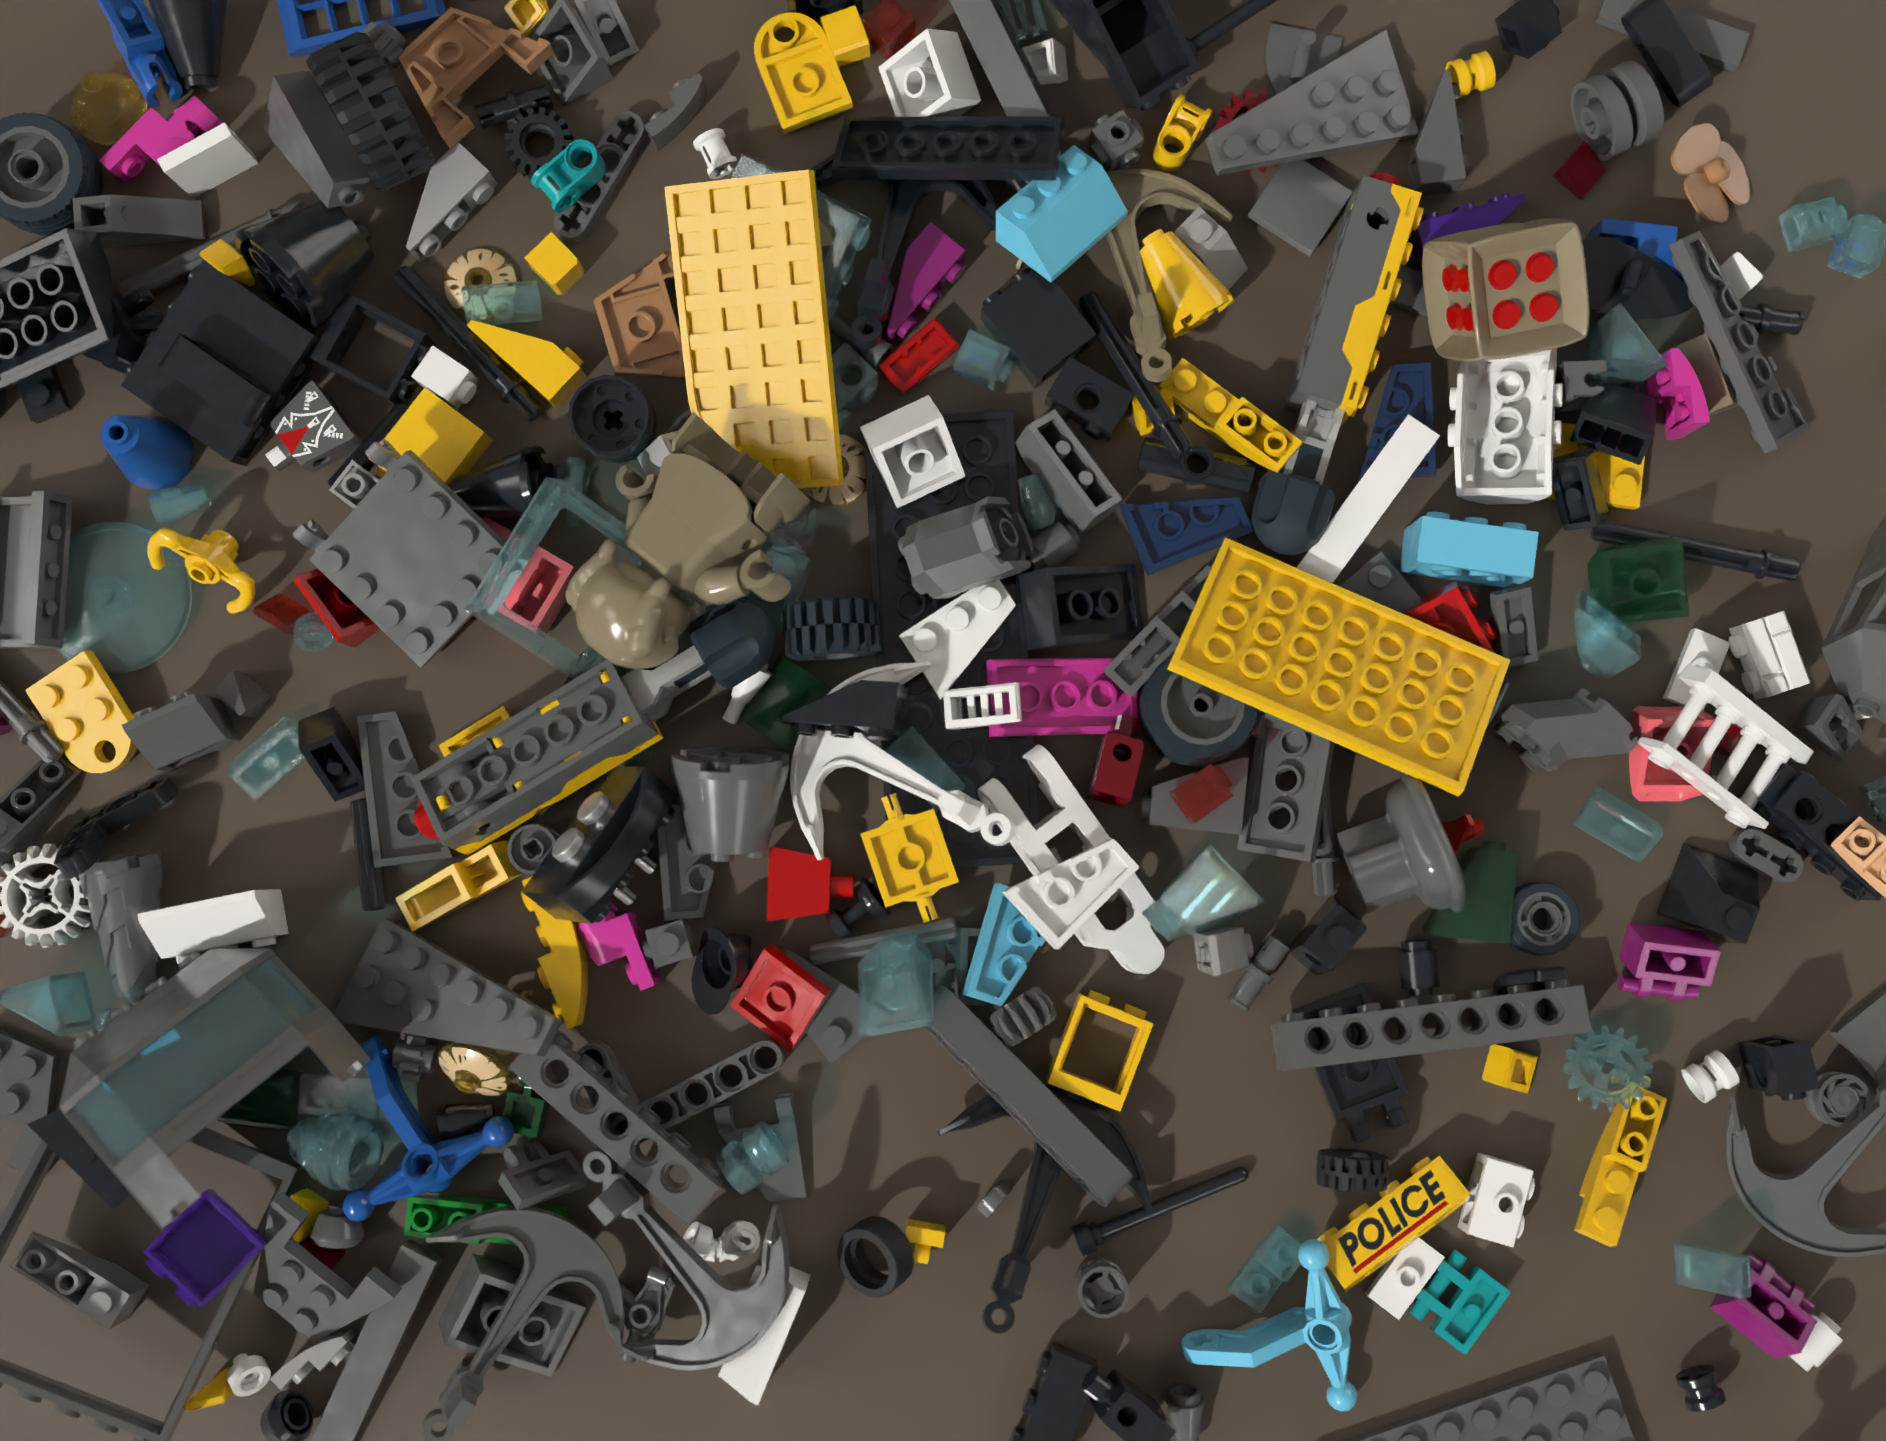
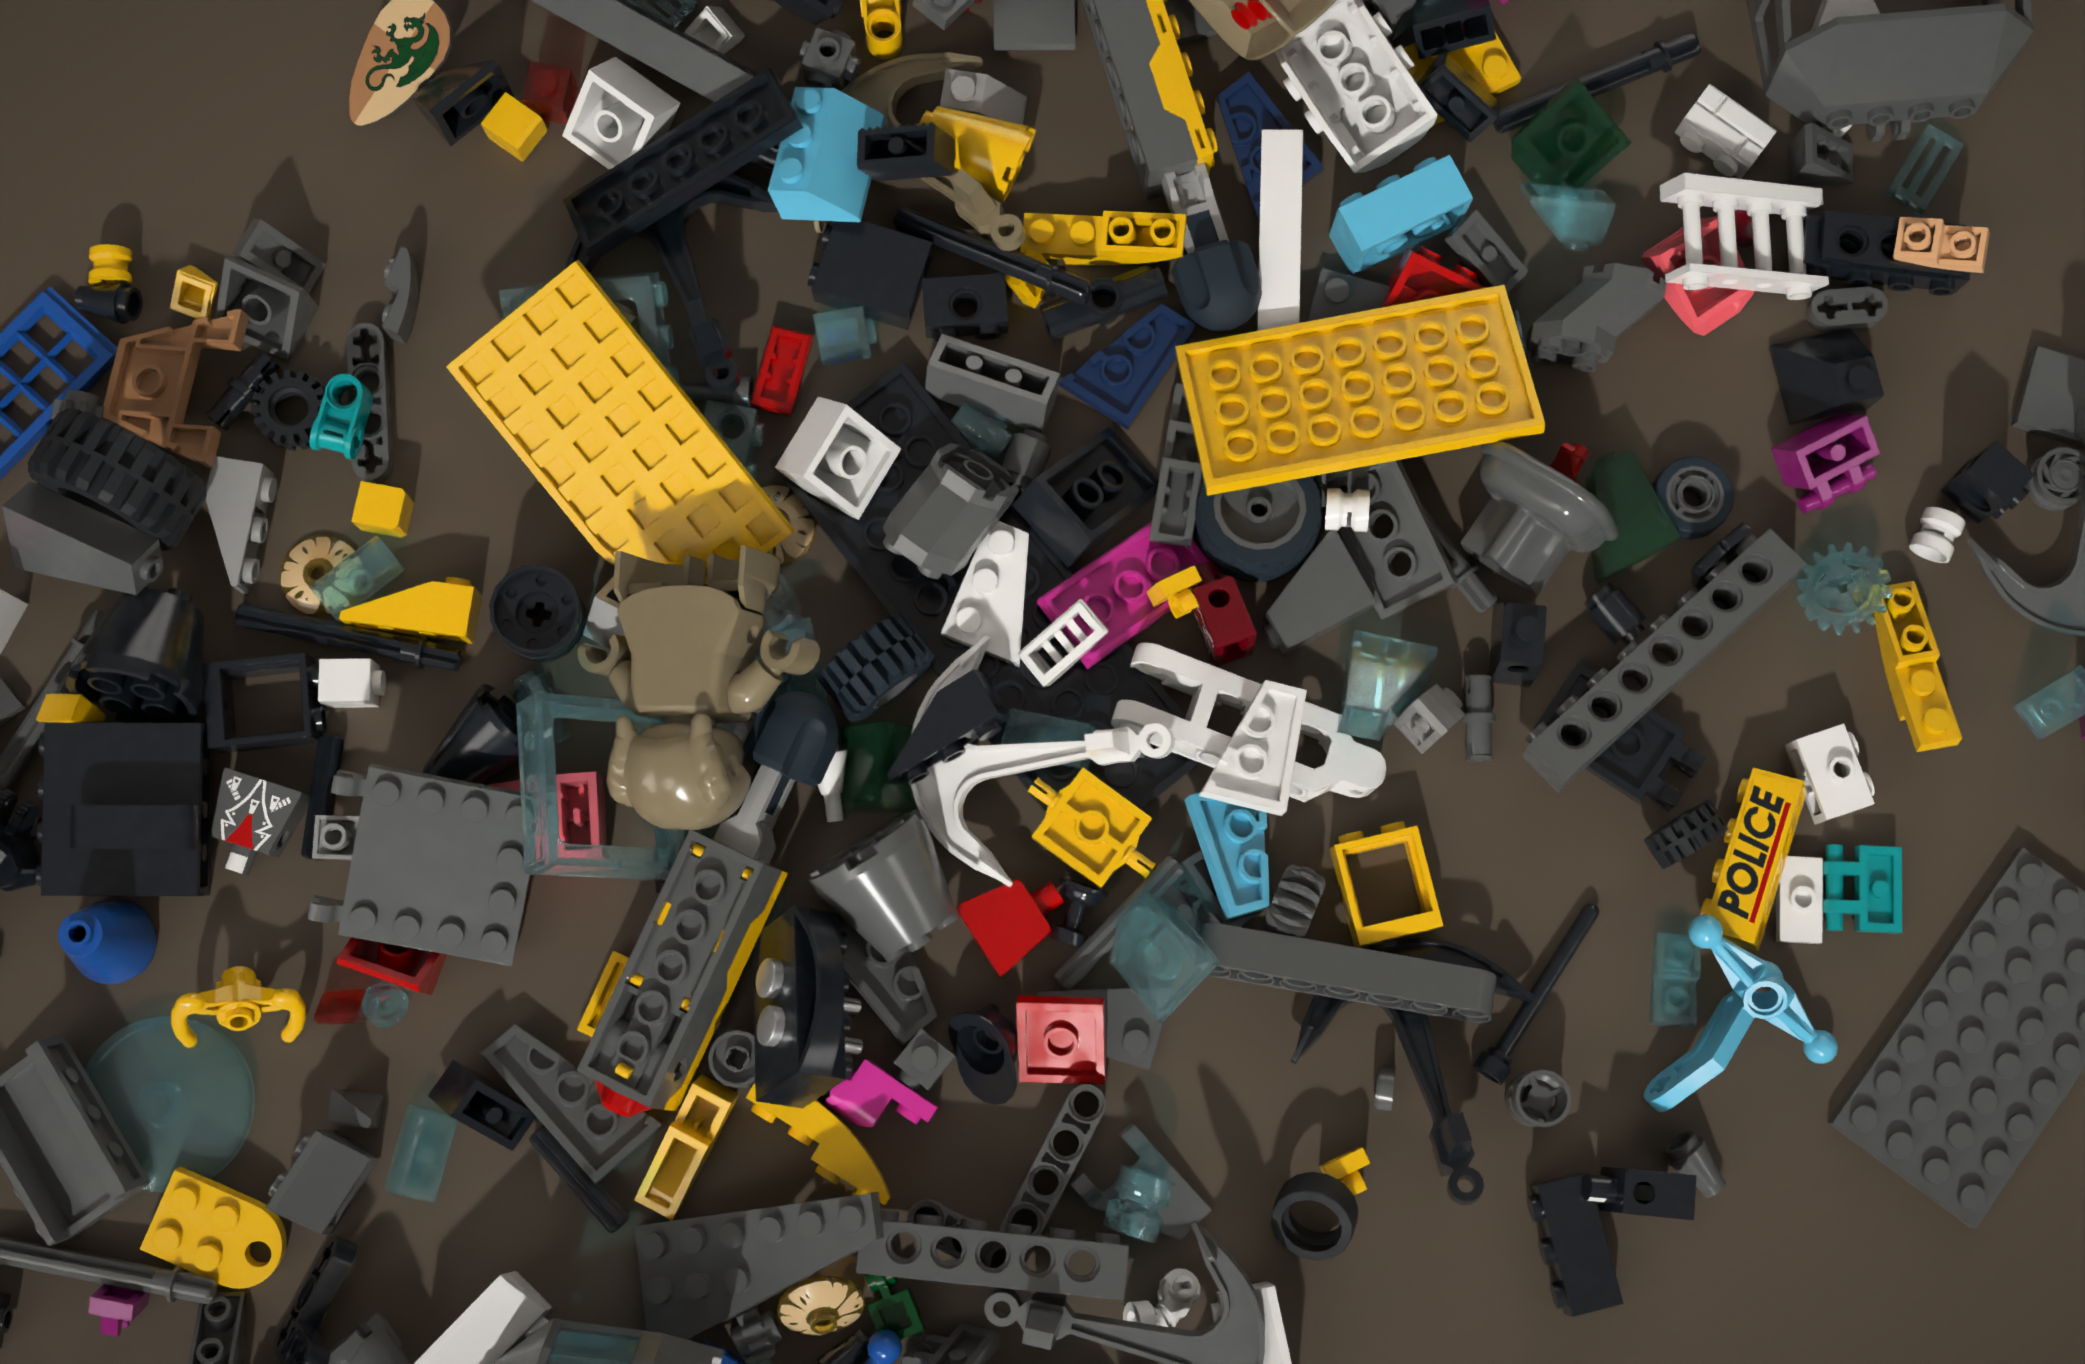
camera: 40 degrees left, 5 degrees down
(178, 502) = (169, 971): clear light blue cone -> none
(438, 437) = (378, 735): yellow brick -> none
(642, 324) = (502, 509): medium nougat wing -> none
(715, 153) = (465, 310): white bush -> none
(800, 72) = (494, 187): yellow plate -> none
(926, 269) = (734, 285): magenta slope -> none
(1095, 725) = (1177, 591): none -> yellow tile
(1121, 251) = (905, 152): none -> black brick
(1202, 793) = (1315, 586): clear red brick -> none
(1267, 750) = (1347, 509): none -> white wheel
(1509, 1068) = (1759, 650): yellow slope -> none
(1619, 825) = (1701, 369): clear light blue slope -> none
(1701, 651) = (1661, 166): white plate -> none

